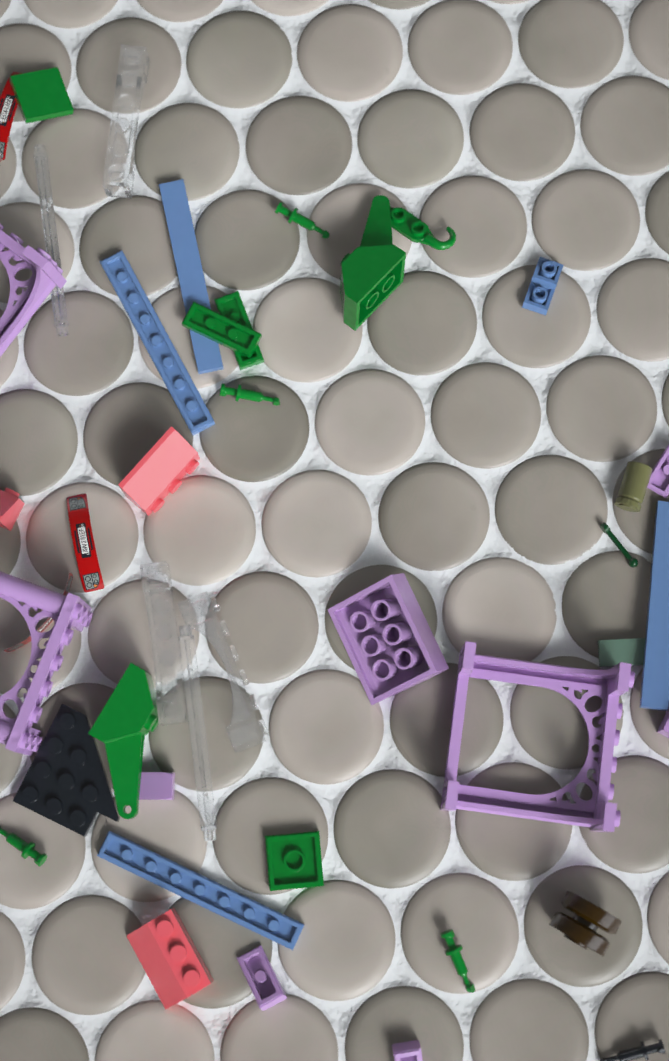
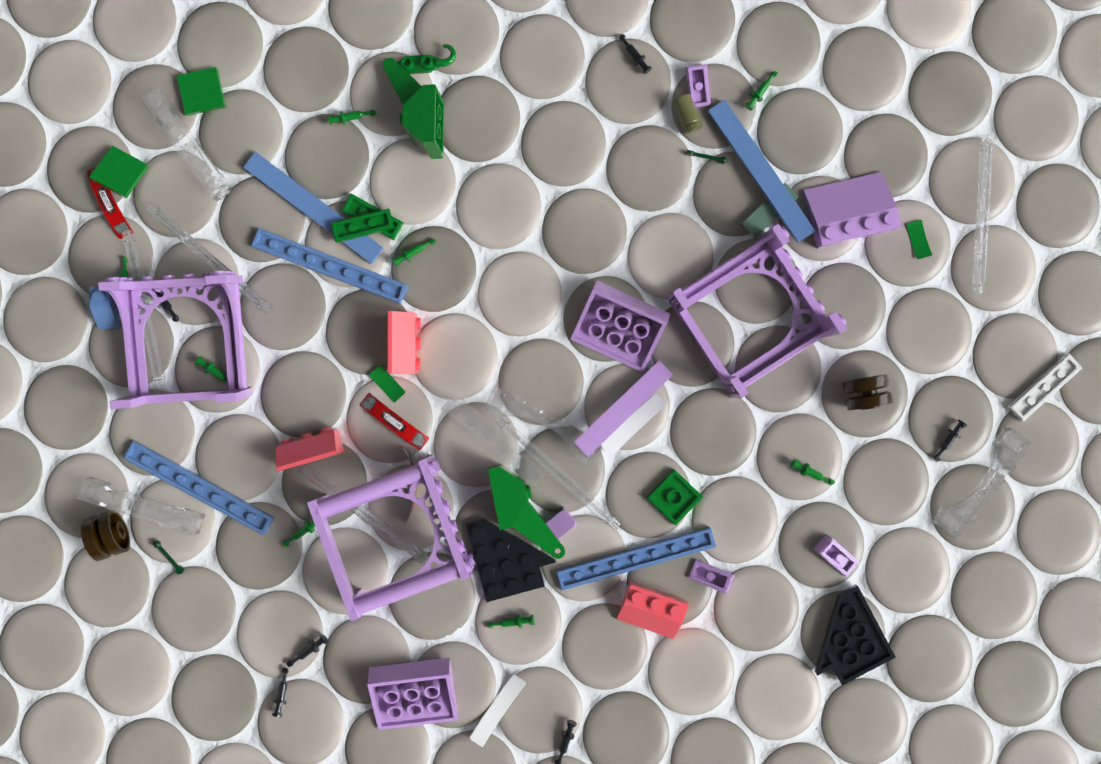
camera: 45 degrees left, 10 degrees up
(111, 500) = (387, 383): none -> green sticker
(183, 86) = (201, 91): none -> green tile
(316, 749) = (633, 424): none -> white sticker
(318, 722) = (622, 409): none -> lavender tile
(542, 286) = (531, 34): medium blue slope -> none
(629, 395) = (638, 59): none -> black piece

